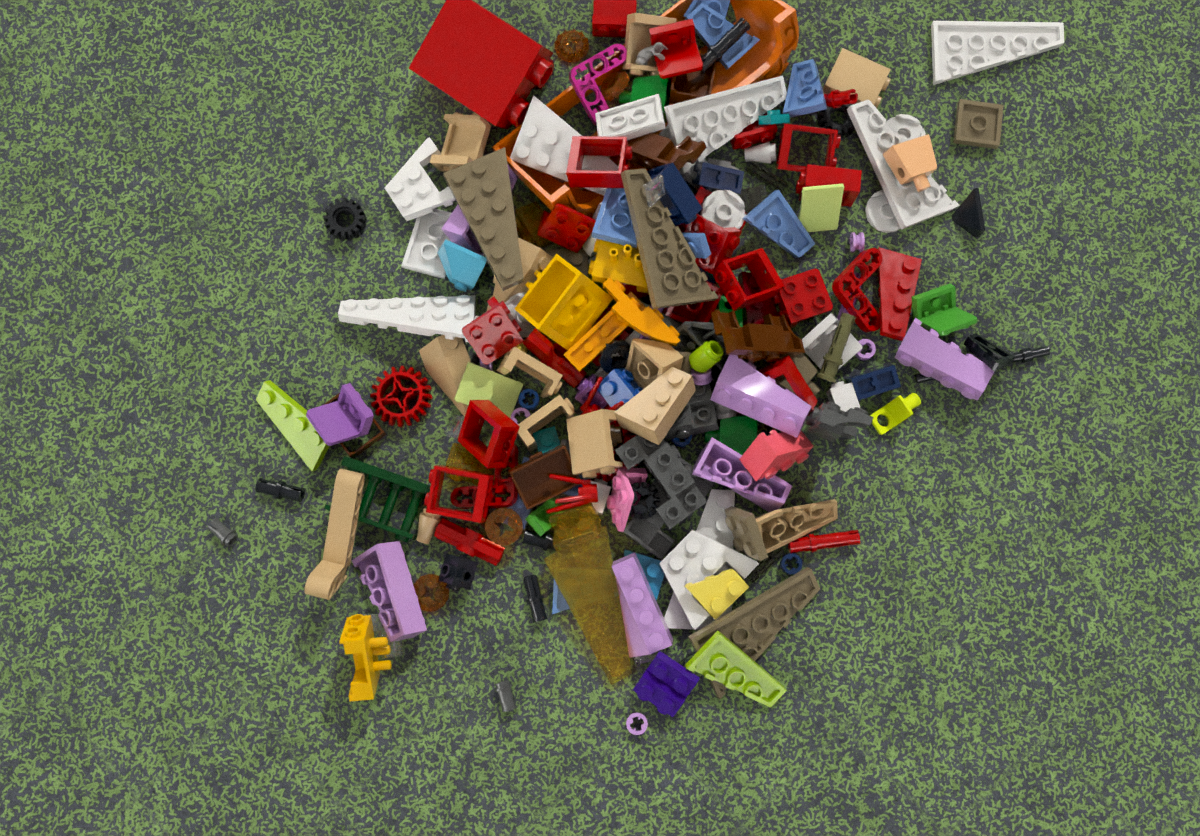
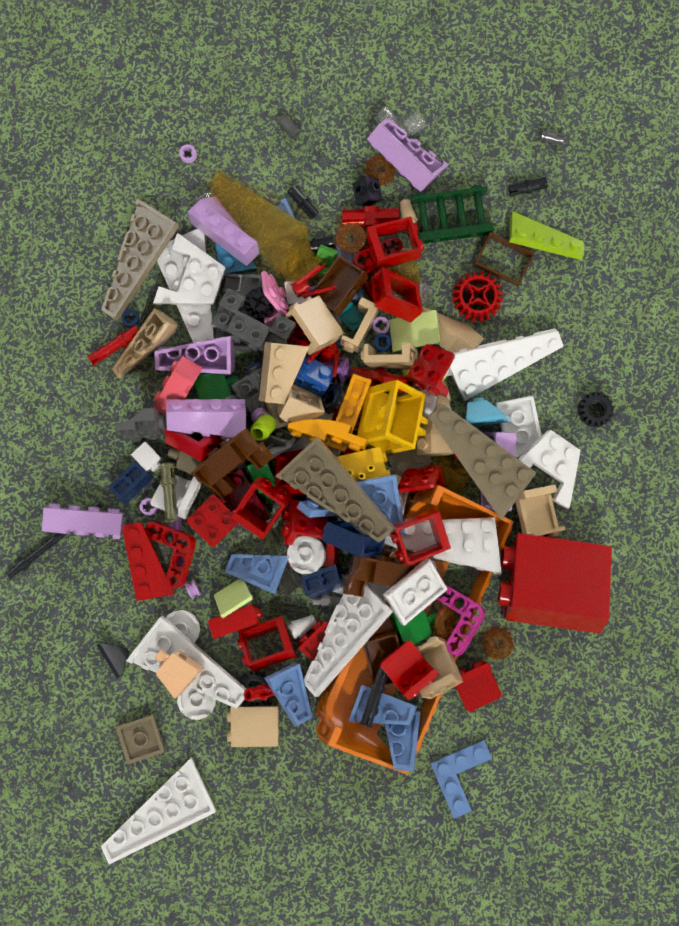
camera: 155 degrees right, 5 degrees up
(340, 536) = (462, 167): tan beam -> none
(342, 419) = (510, 253): medium lavender bracket -> none
(360, 641) = (404, 102): yellow piece -> none
(617, 435) = (299, 335): dark brown plate -> none
(646, 53) = (431, 656): light grey arm -> none
(654, 190) = (363, 526): clear slope -> none
(665, 684) = (180, 186): dark purple plate -> none
(718, 591) = (173, 267): light yellow wing -> none
(729, 665) = (135, 220): lime wing -> none
(745, 533) = (172, 316): dark tan plate -> none
(773, 117) = (304, 654): teal plate -> none
(896, 412) = (104, 469): neon yellow bracket -> none
(939, 311) = (102, 560): bright green bracket -> none
(989, 353) = (52, 546): black wing -> none

